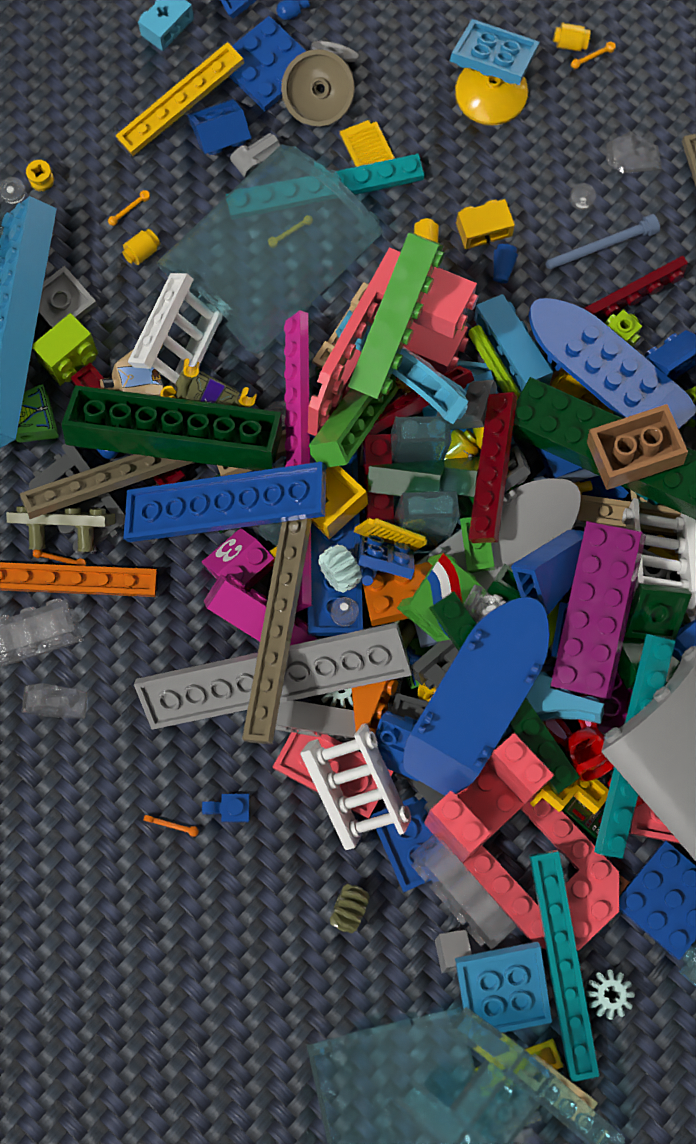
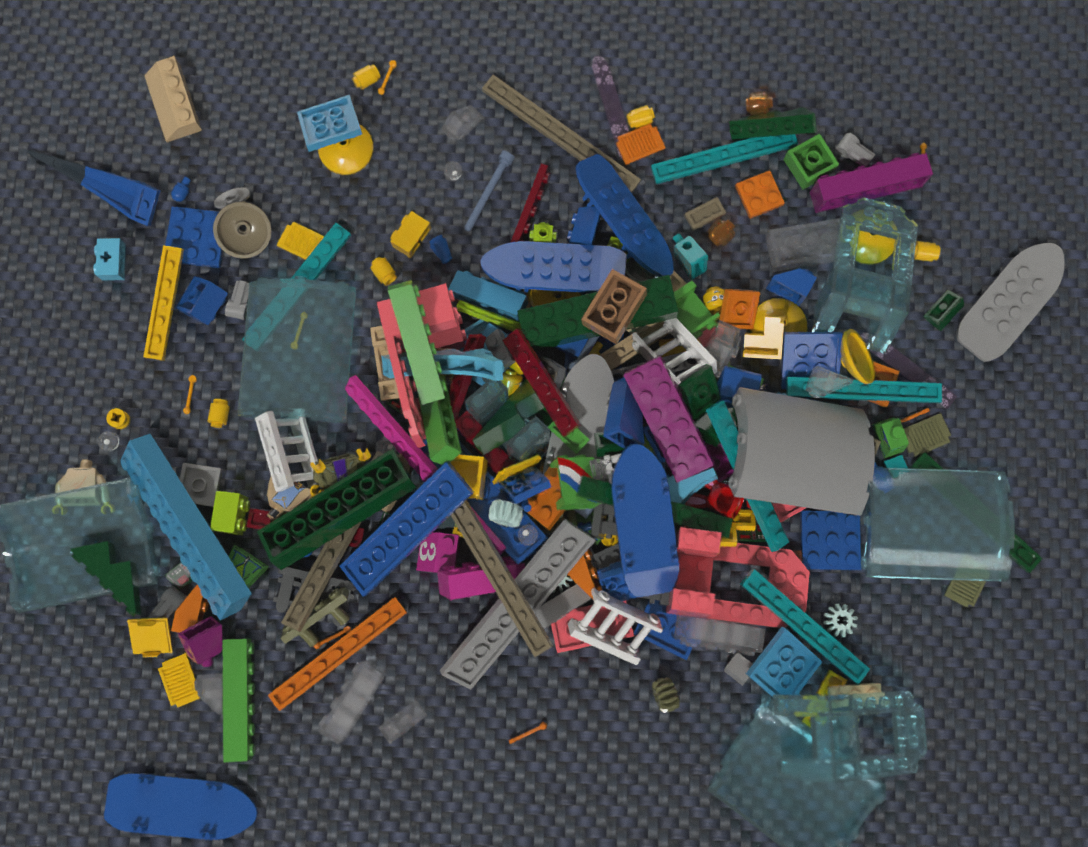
camera: 40 degrees left, 5 degrees up
(233, 808) = (553, 694): blue plate -> none

